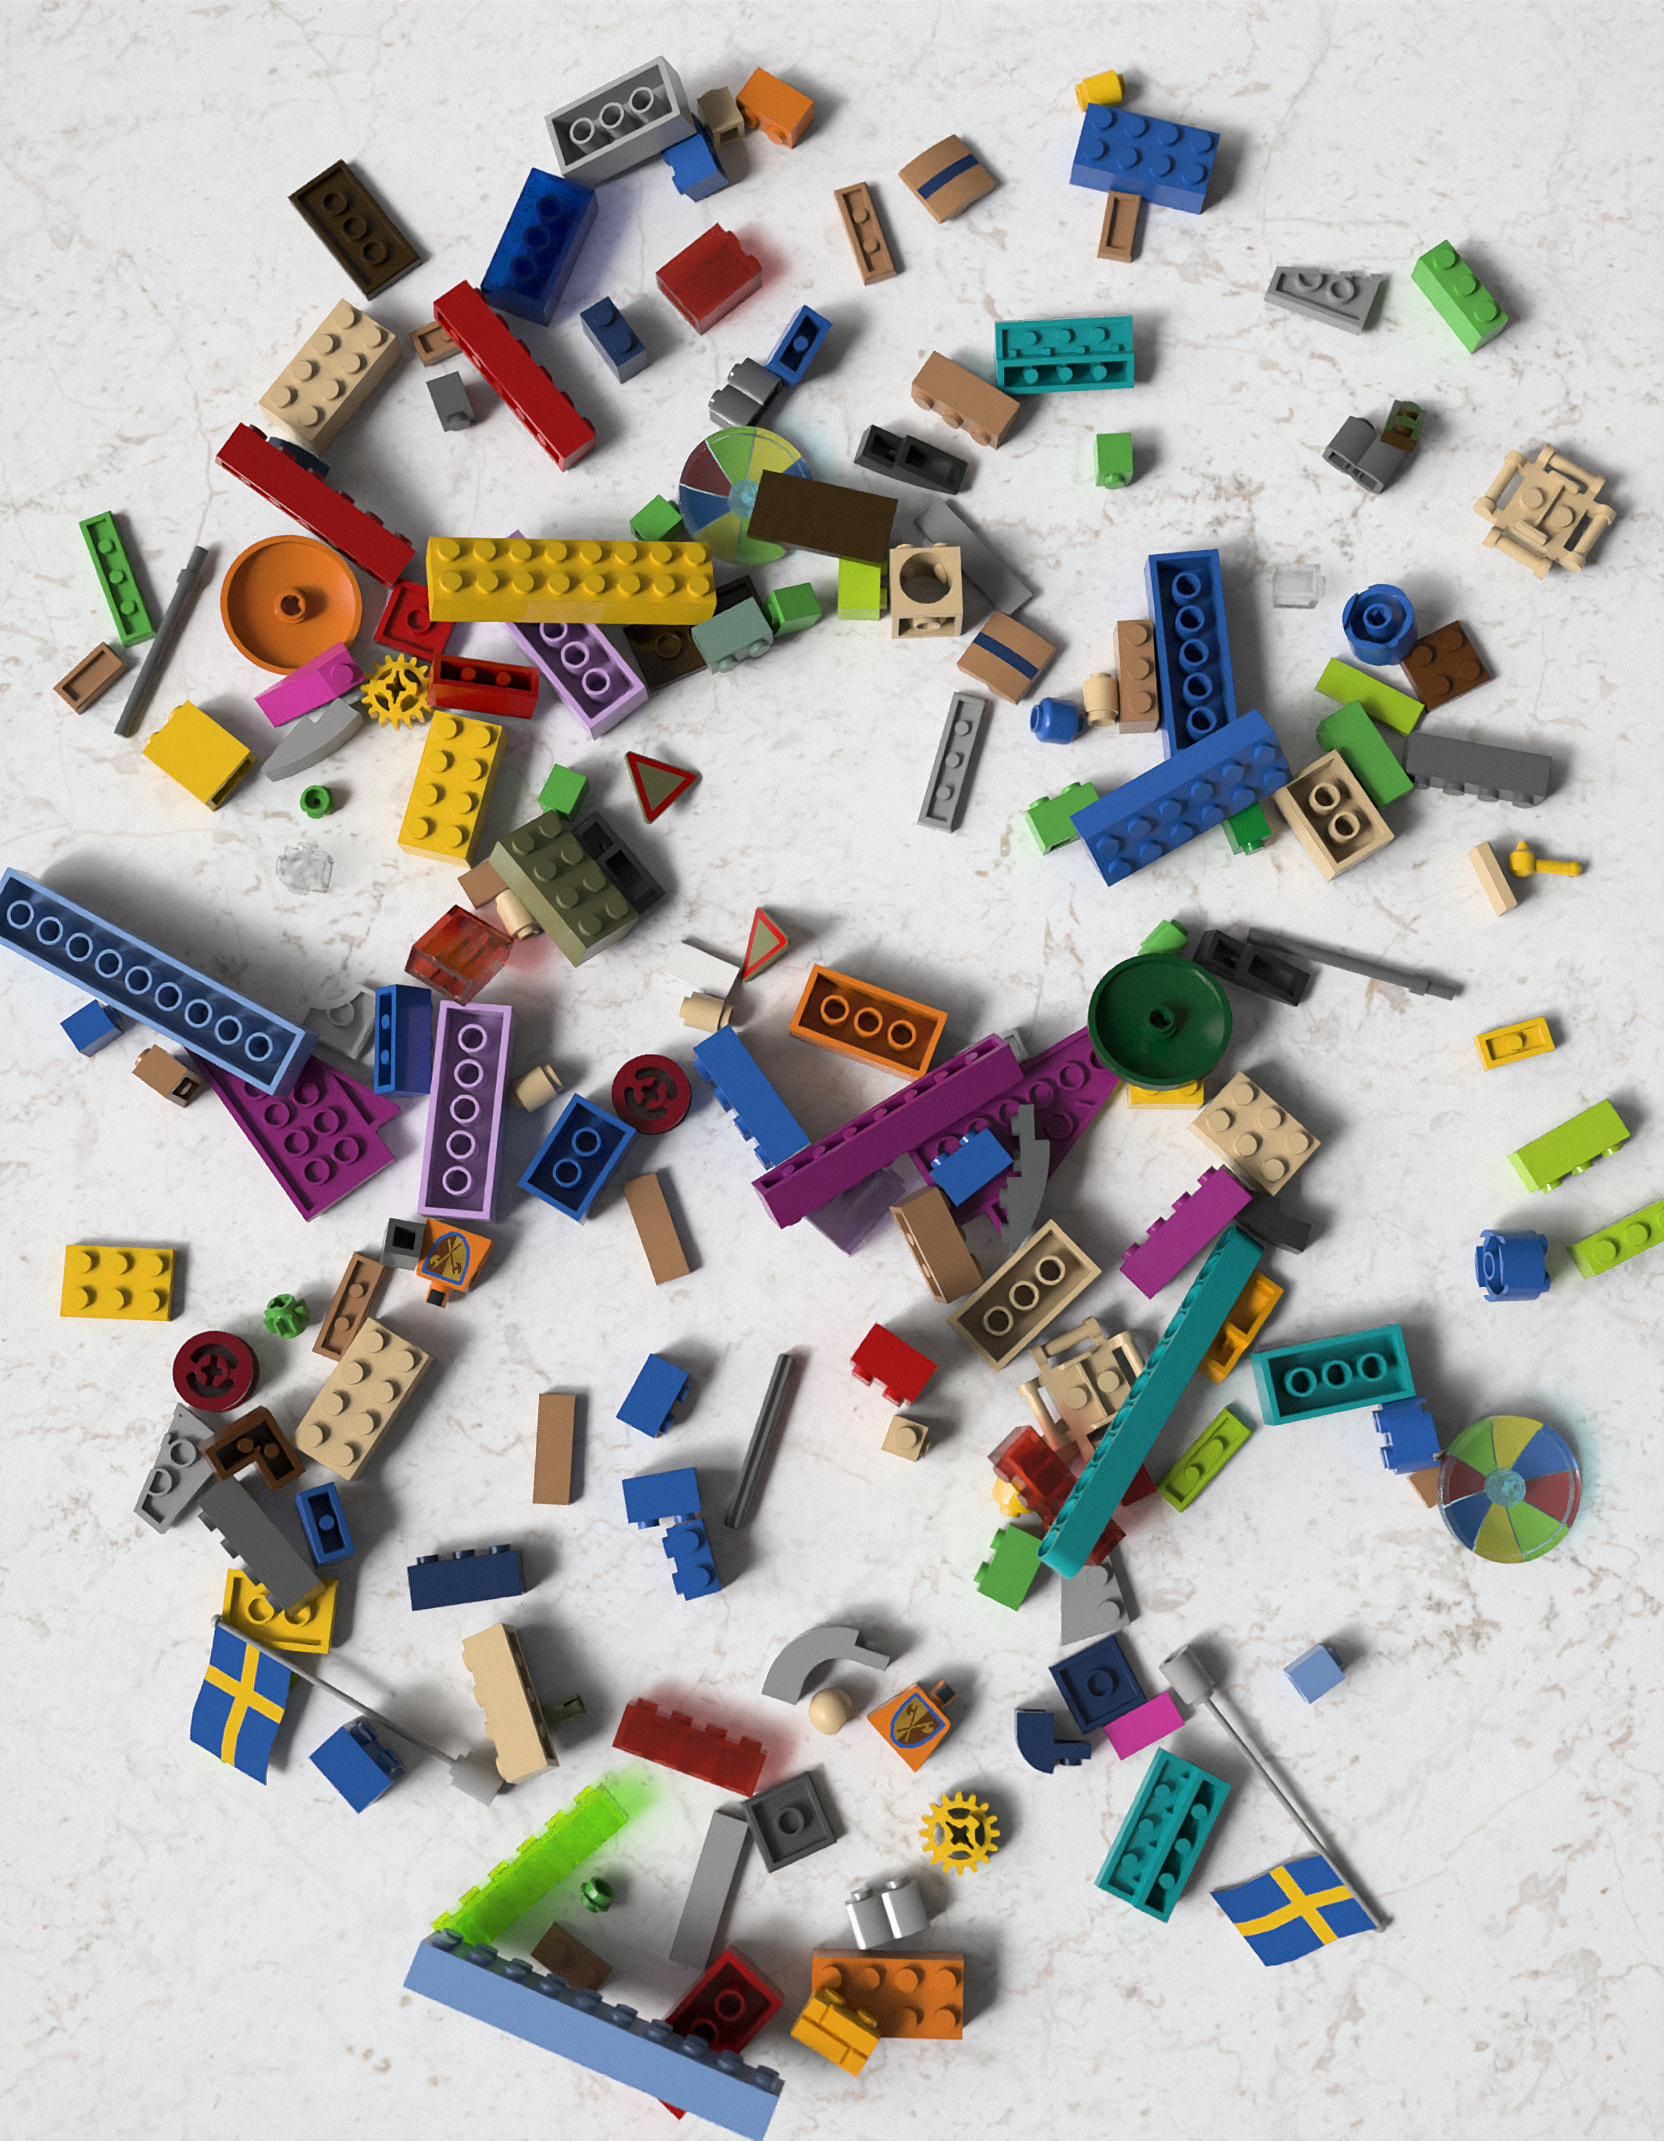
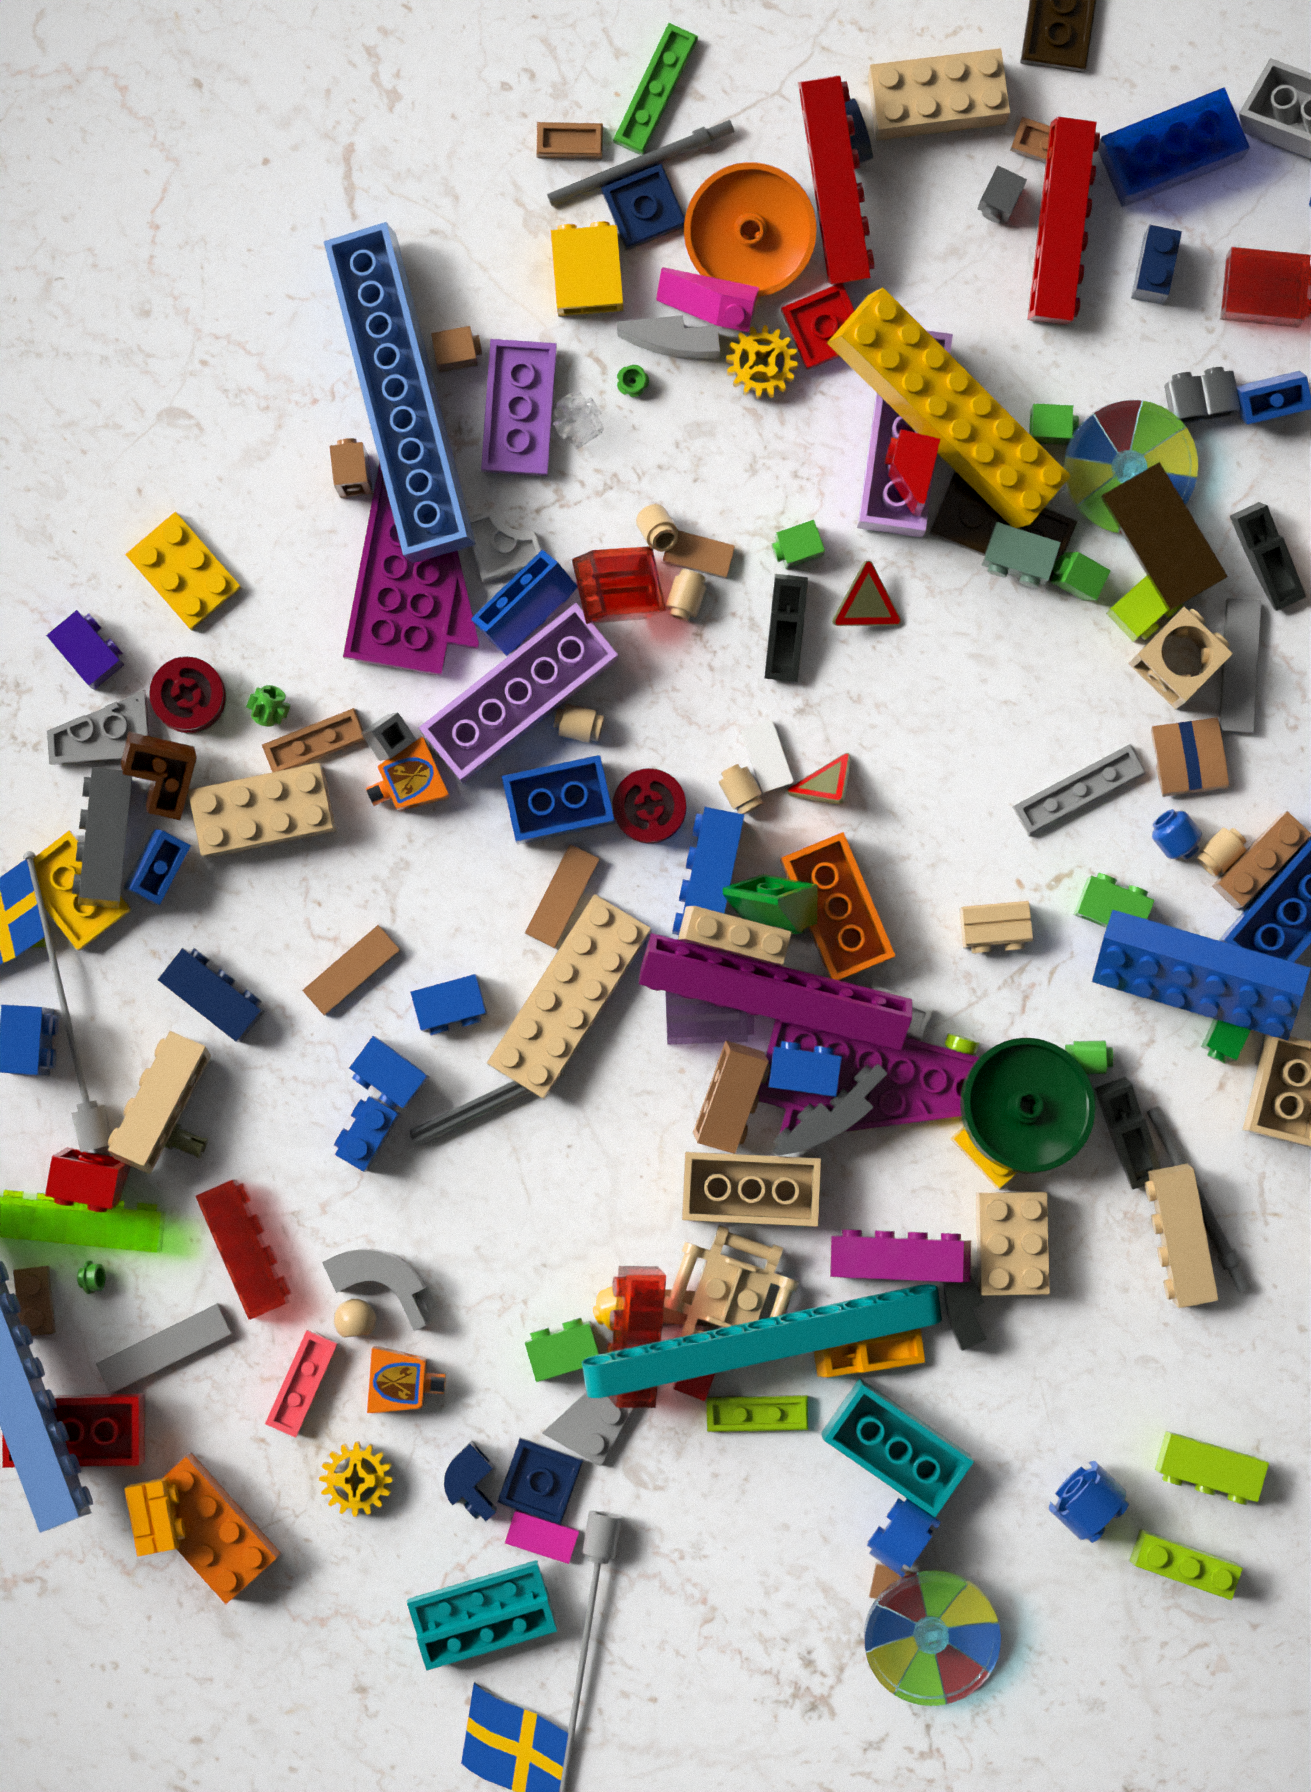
camera: 45 degrees right, 5 degrees up
(93, 1027) = (335, 384): blue brick -> none
(101, 1418) = (85, 649): none -> dark purple brick
(159, 910) = (456, 348): none -> medium nougat brick
(196, 670) = (643, 207): none -> dark blue tile
(251, 905) = (519, 407): none -> medium lavender plate
(445, 886) = (657, 527): none -> tan brick
(452, 789) = (729, 466): yellow brick -> none
(482, 686) = (819, 418): red brick -> none
(514, 1823) = (86, 1179): none -> red slope
(563, 888) = (732, 609): olive brick -> none
(586, 646) = (912, 466): none -> red slope
(739, 1297) = (569, 996): none -> tan plate
(788, 1822) = (256, 1359): dark grey tile -> none
(814, 1118) = (734, 935): none -> tan brick
(819, 1065) = (775, 902): none -> green slope
(841, 1804) = (301, 1383): none -> coral plate
(886, 1912) = (259, 1479): light grey brick -> none
(891, 1365) = (617, 1145): red brick -> none
(906, 1439) = (580, 1200): tan brick -> none
(996, 918) = (996, 925): none -> tan brick
(1063, 1030) = (961, 1044): none -> lime tile
(1315, 1672) = (685, 1619): medium blue brick -> none
(1369, 1001) = (1182, 1236): none -> tan brick
(1514, 1043) = (1249, 1363): yellow plate -> none

